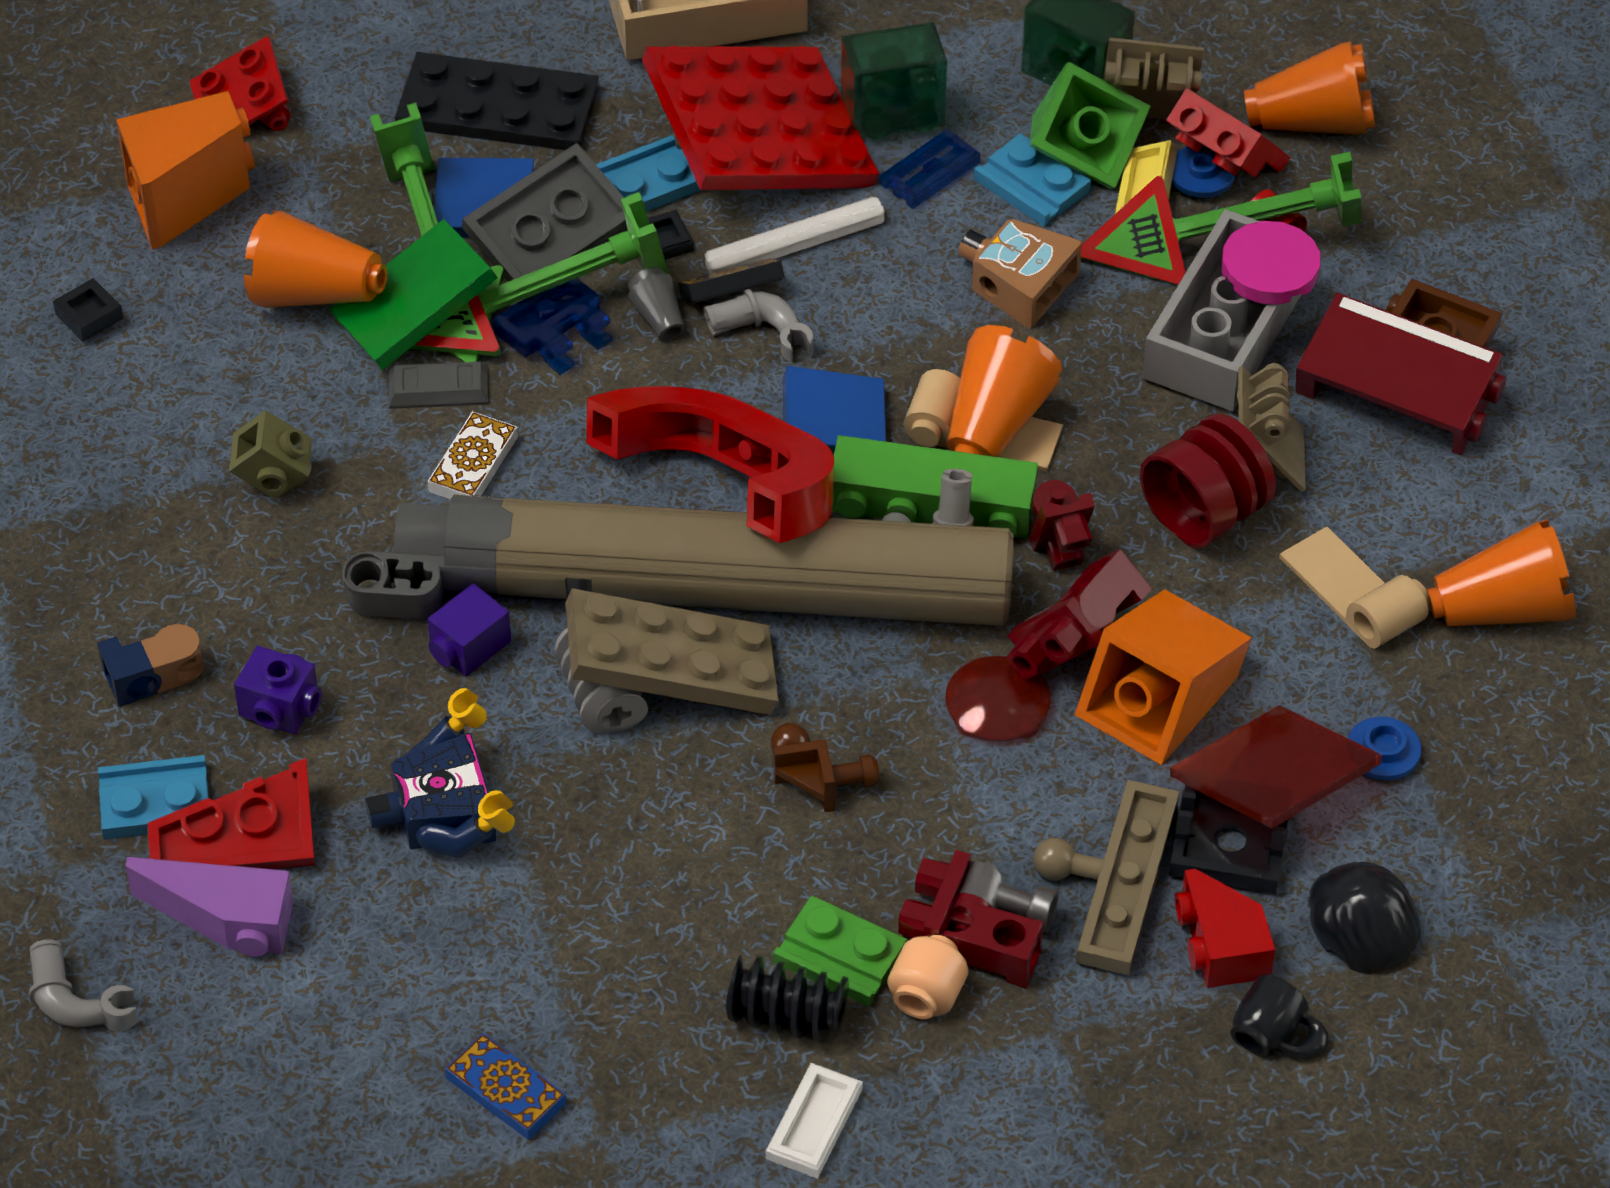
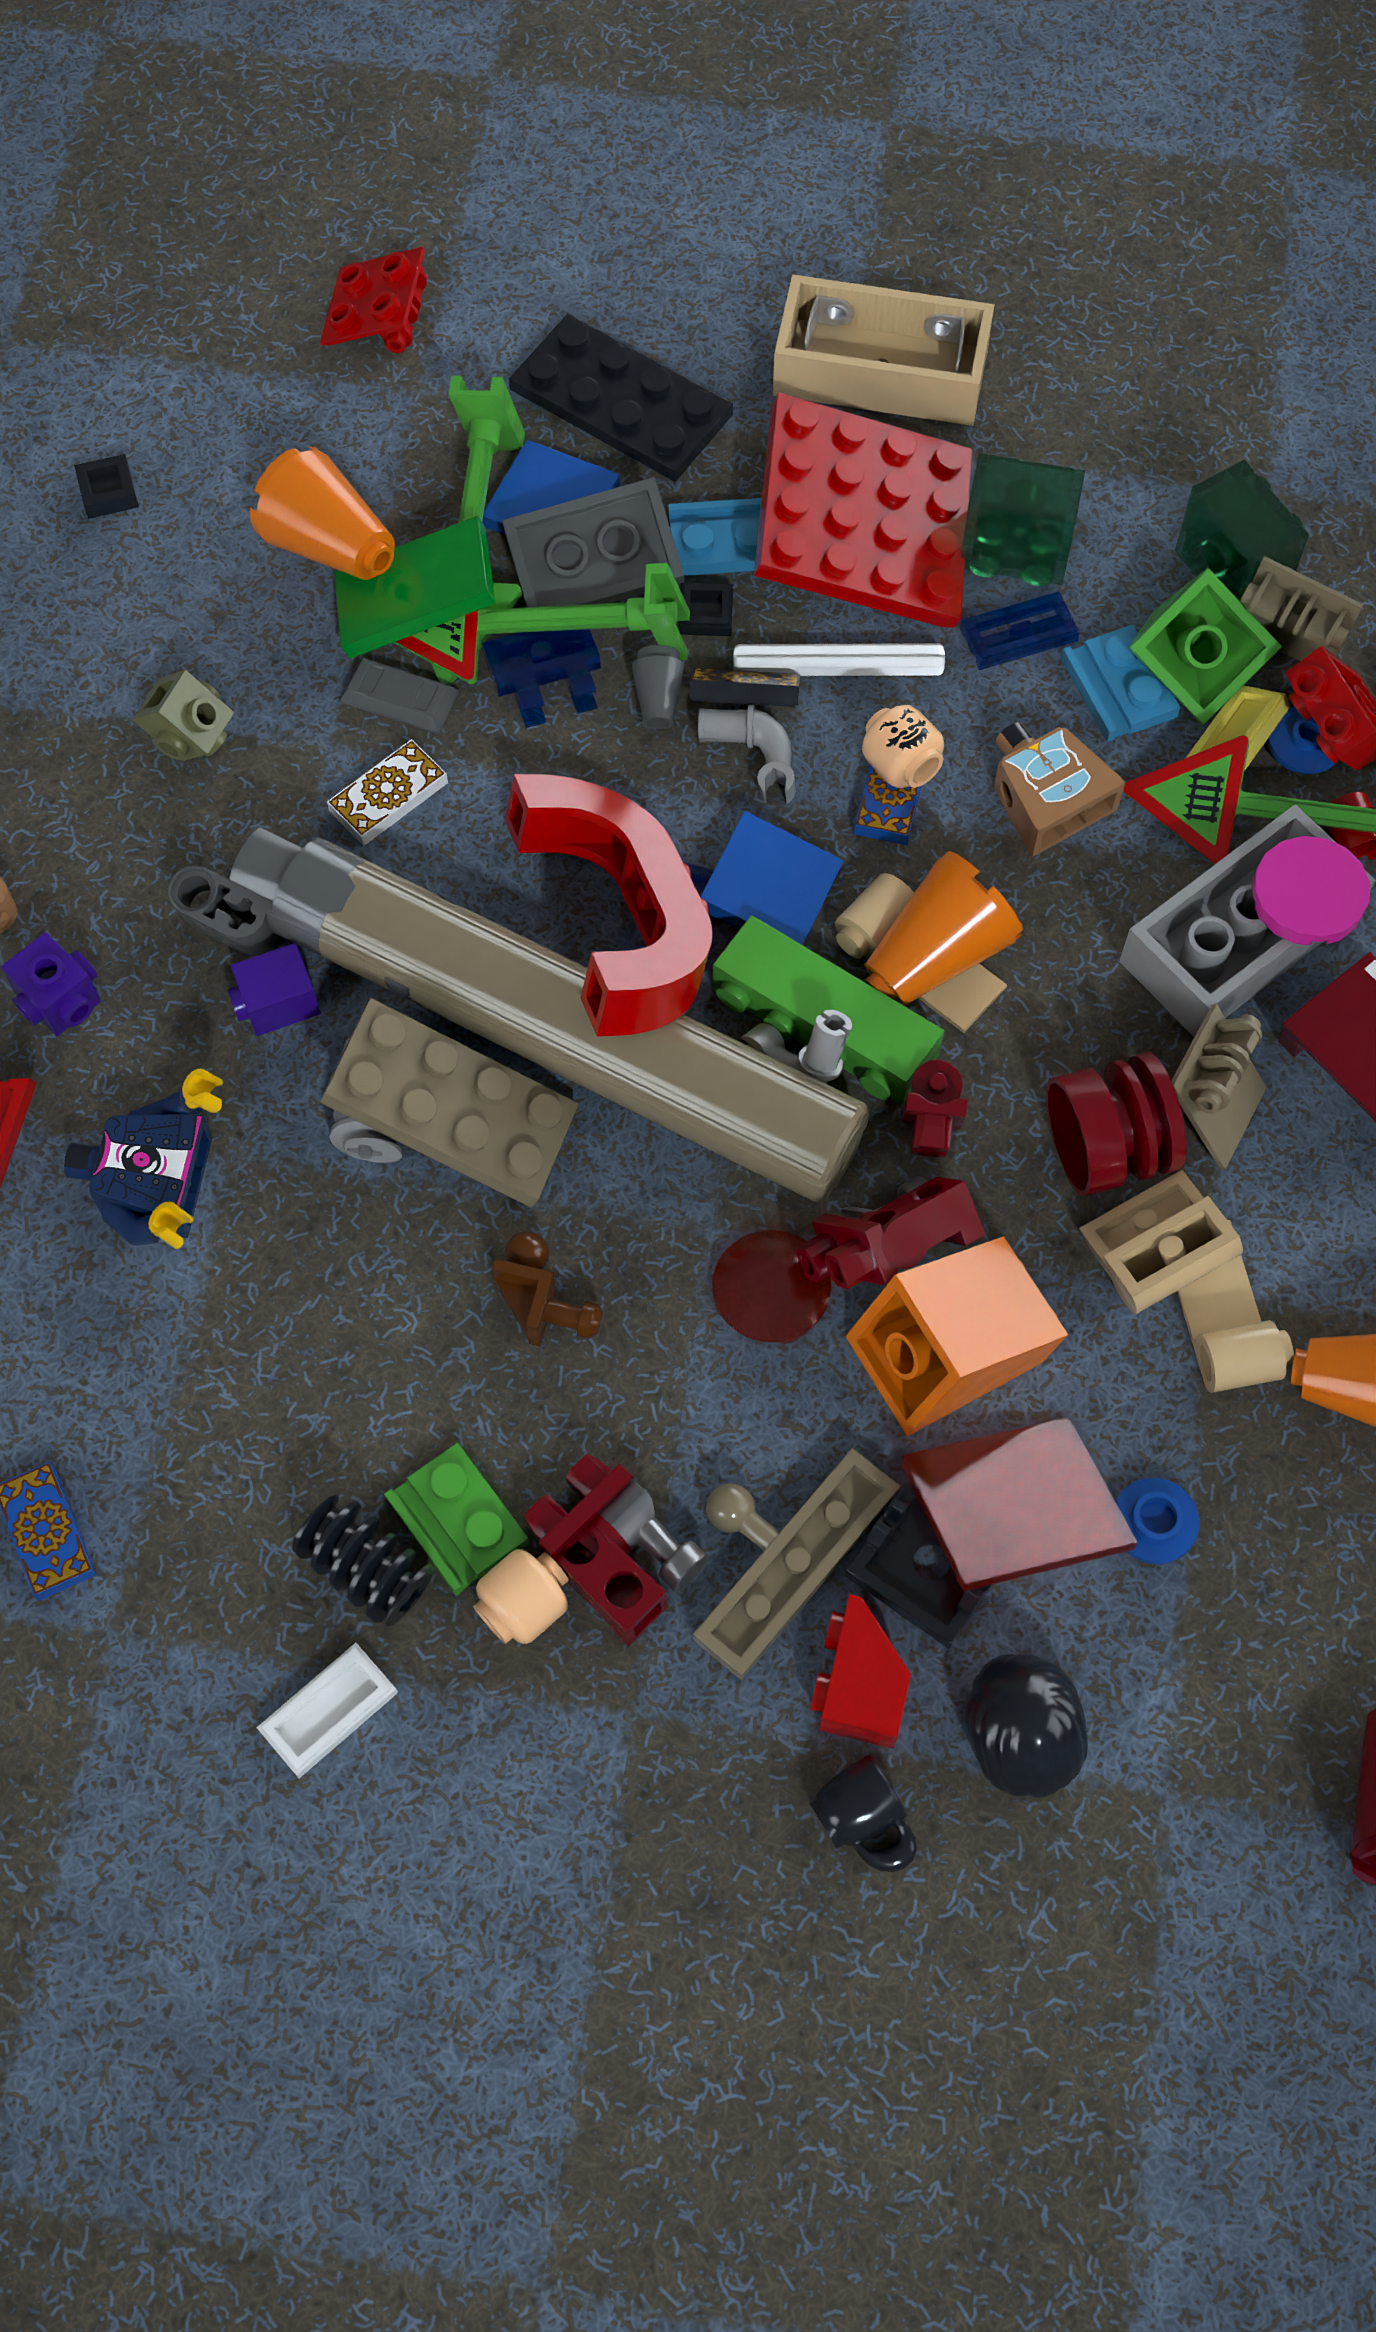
camera: 25 degrees right, 15 degrees up
(185, 162) = (265, 361): orange slope -> none
(891, 274) = (903, 746): none -> light nougat head
(892, 316) = (885, 810): none -> tile
(1286, 551) = (1161, 1241): none -> tan brick

